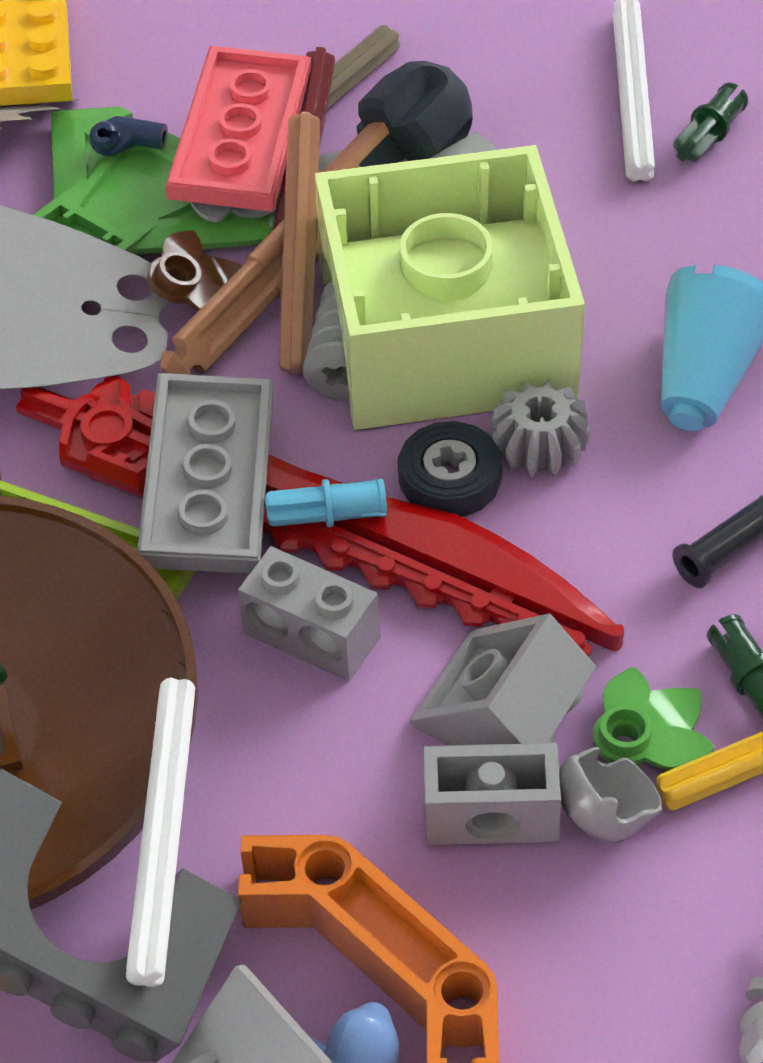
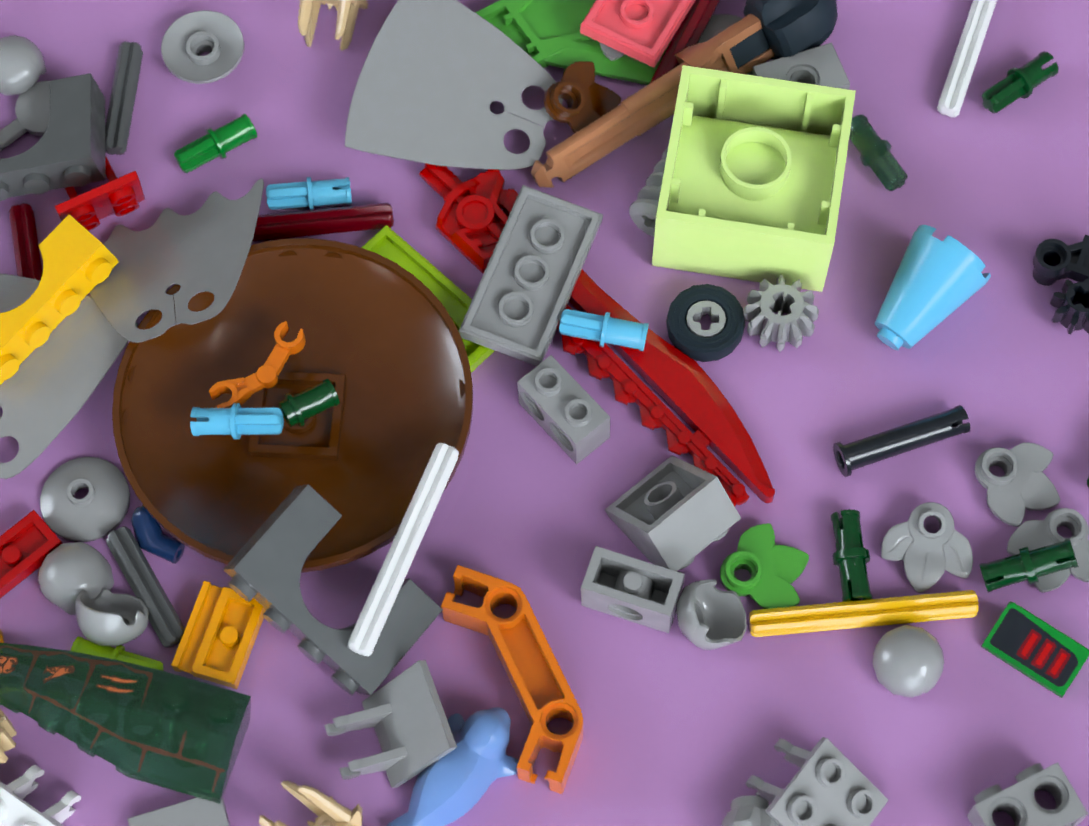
camera: 20 degrees right, 15 degrees up
(299, 241) = (662, 102): nougat axle -> none
(590, 240) = (876, 153): none -> clear green axle

